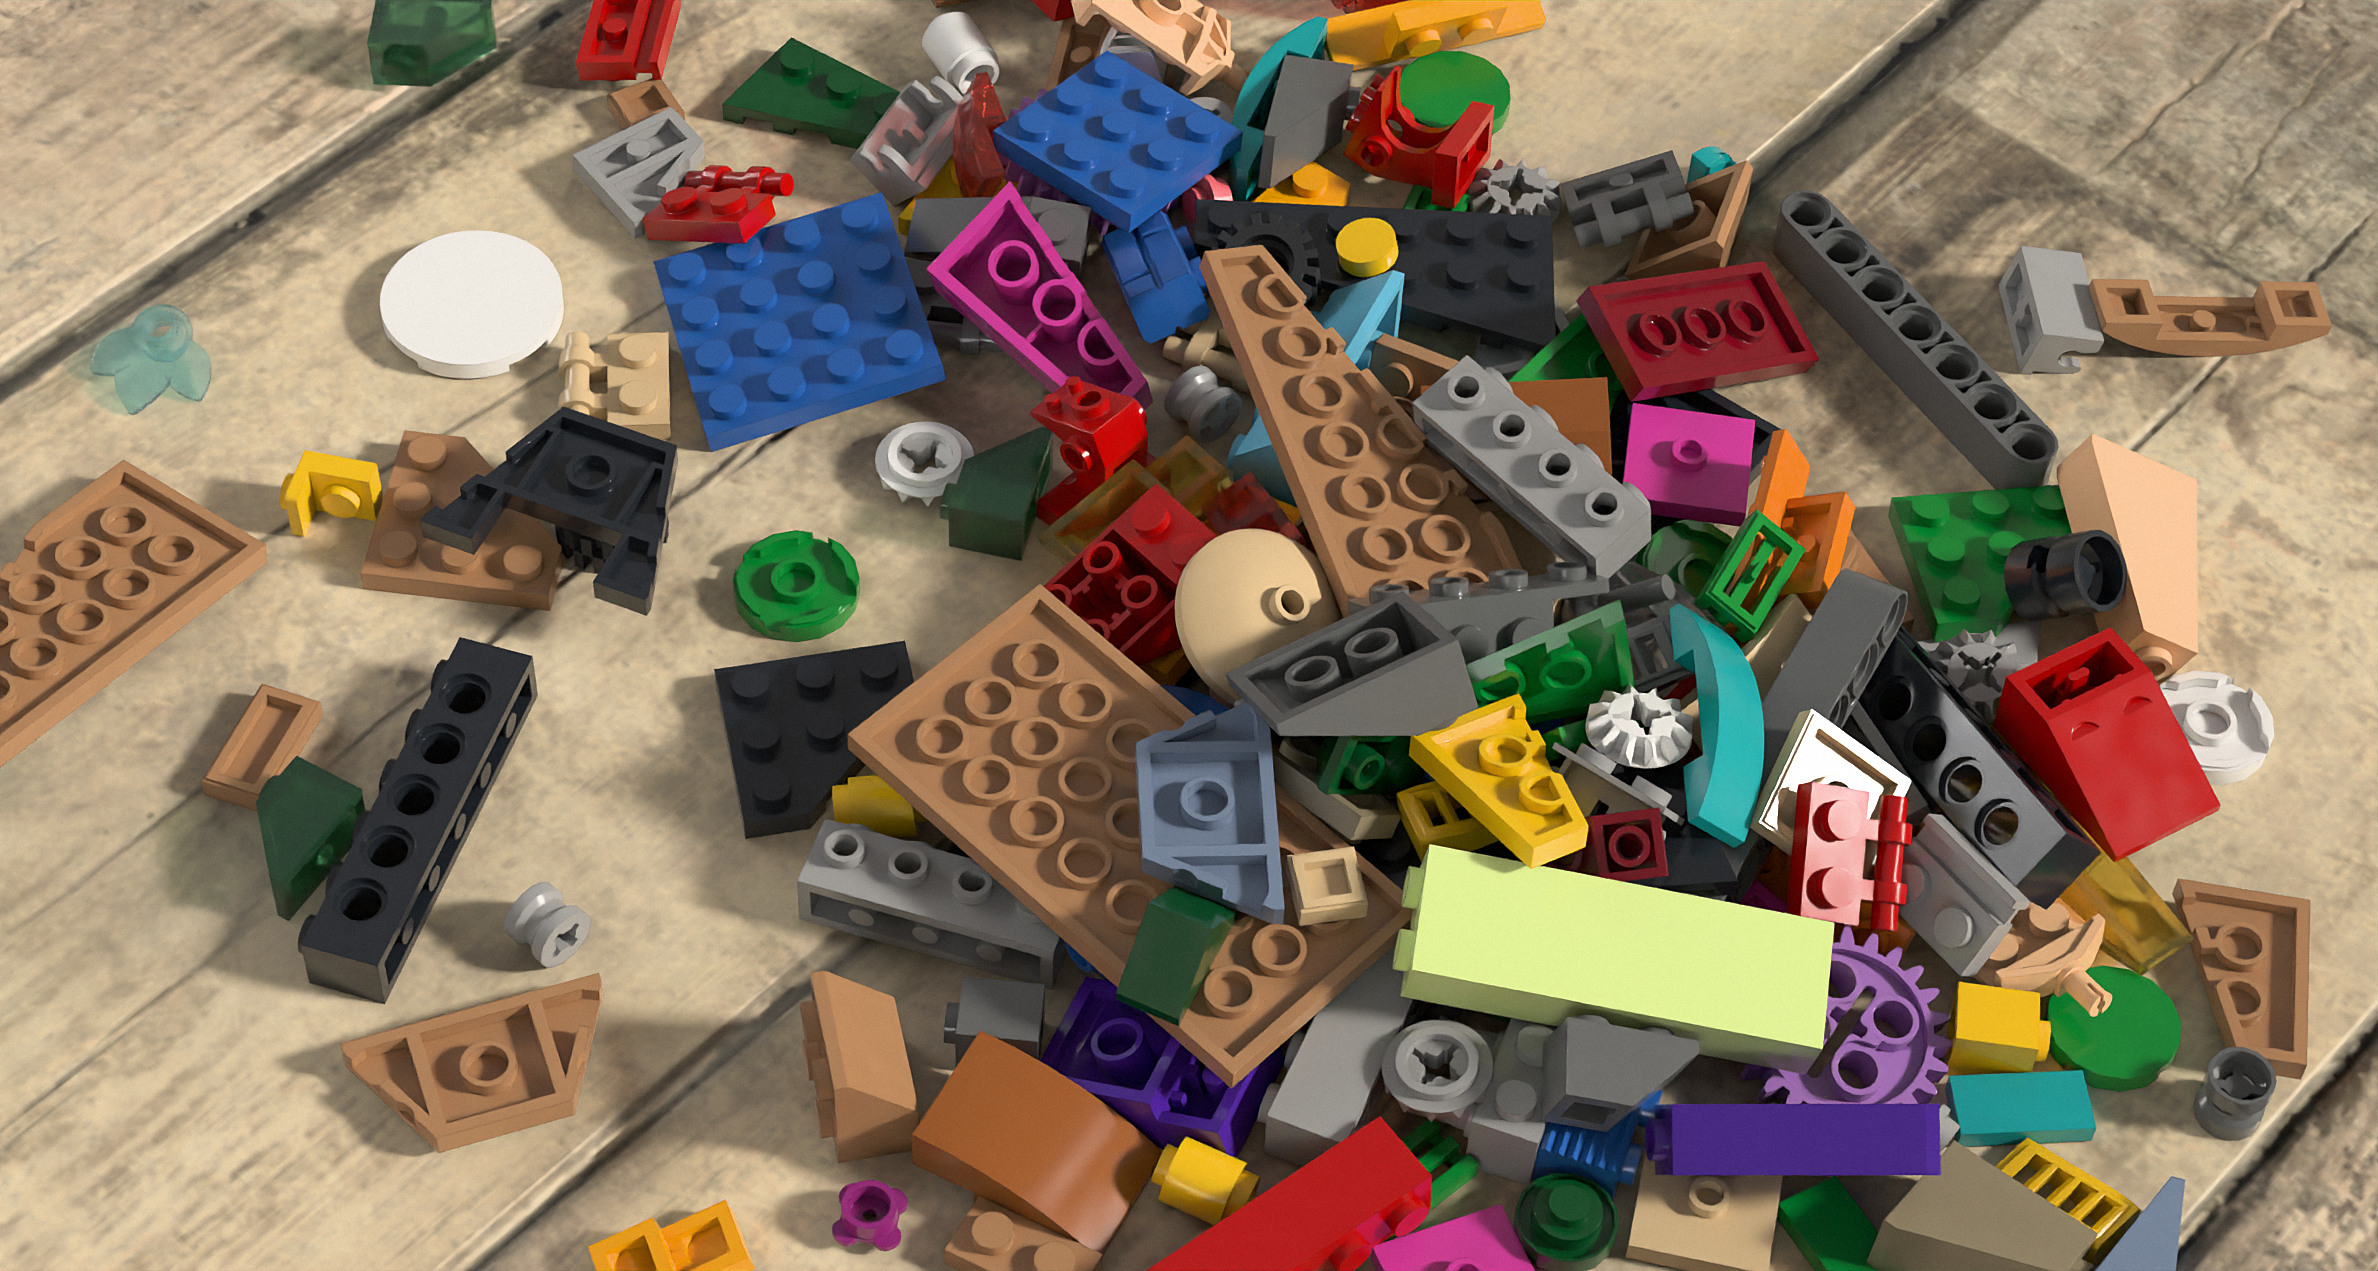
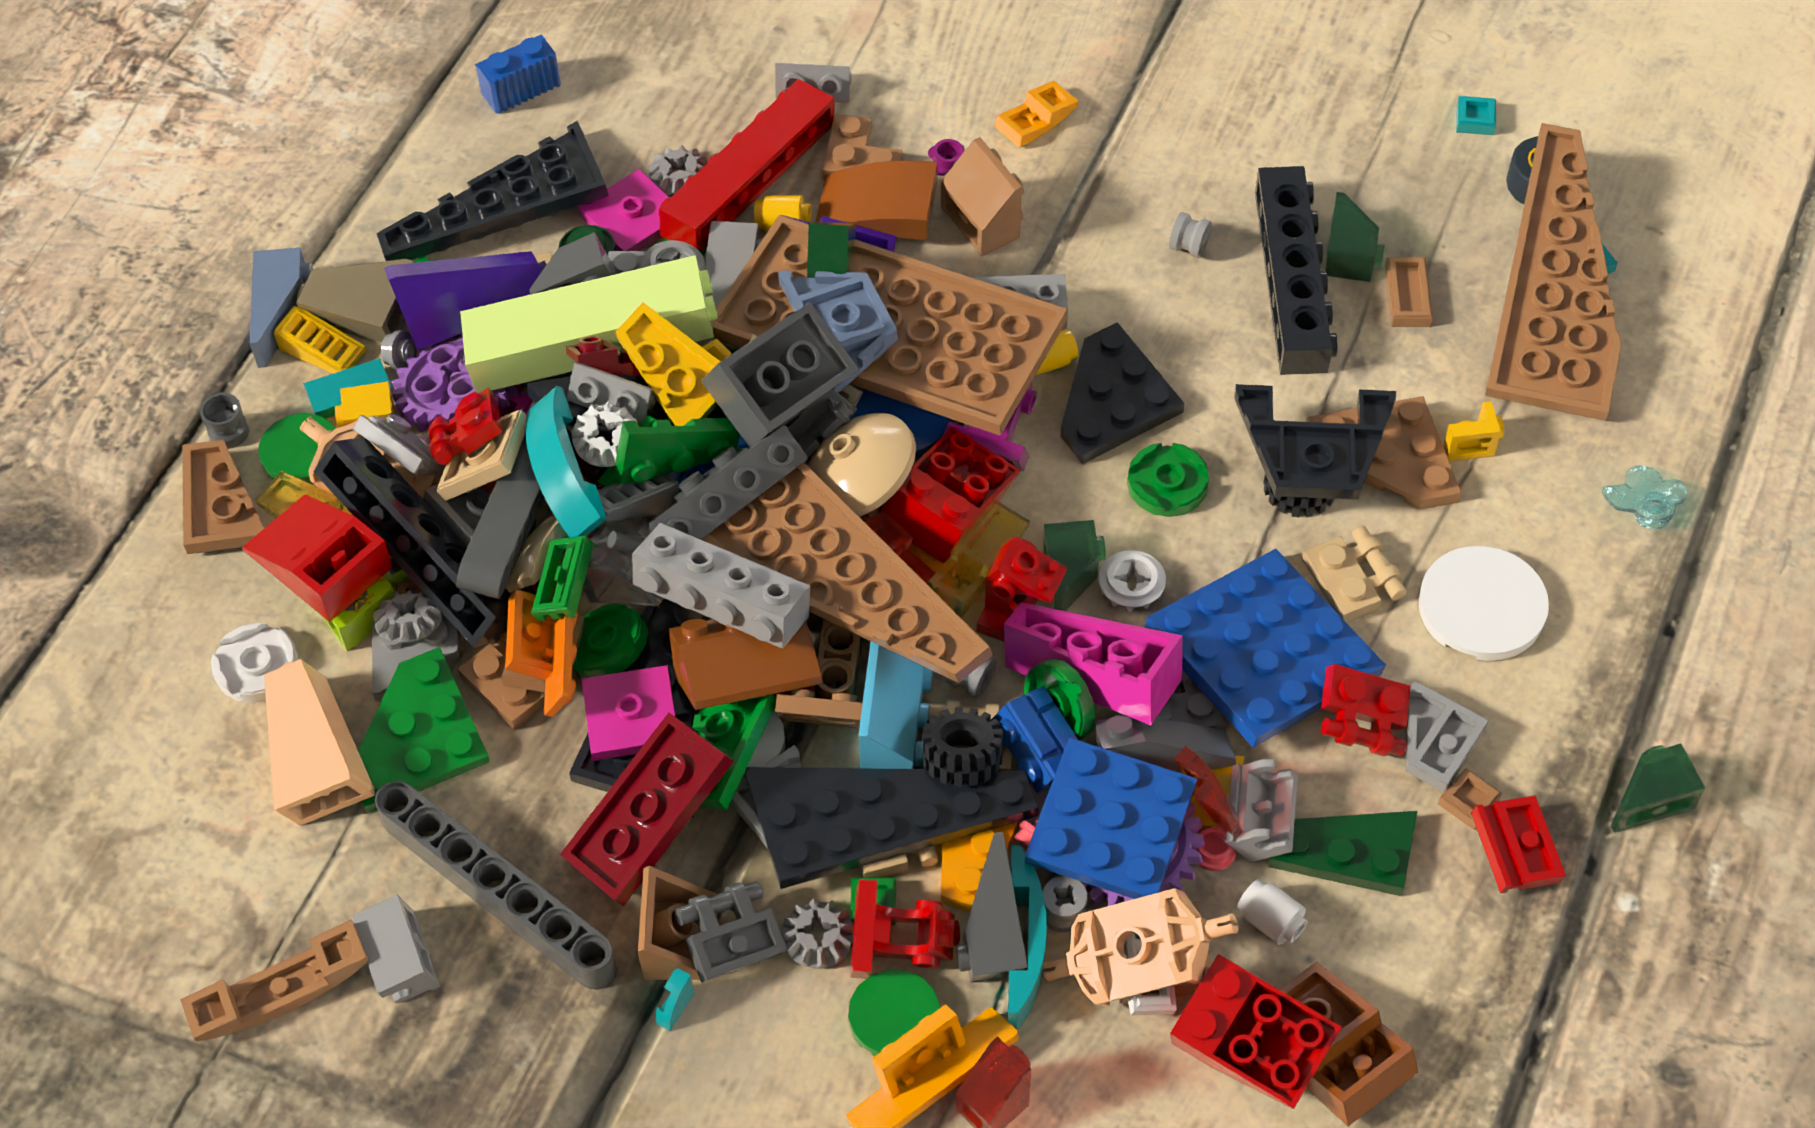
camera: 165 degrees right, 5 degrees up
(485, 1065) = (1179, 164): medium nougat wing -> none
(999, 1008) = (926, 245): dark grey brick -> none
(1112, 299) = (1067, 692): none -> green tile
(1326, 886) = (761, 309): tan tile -> none
(1367, 247) = (898, 787): yellow tile -> none
(2065, 575) = (353, 683): black wheel -> none

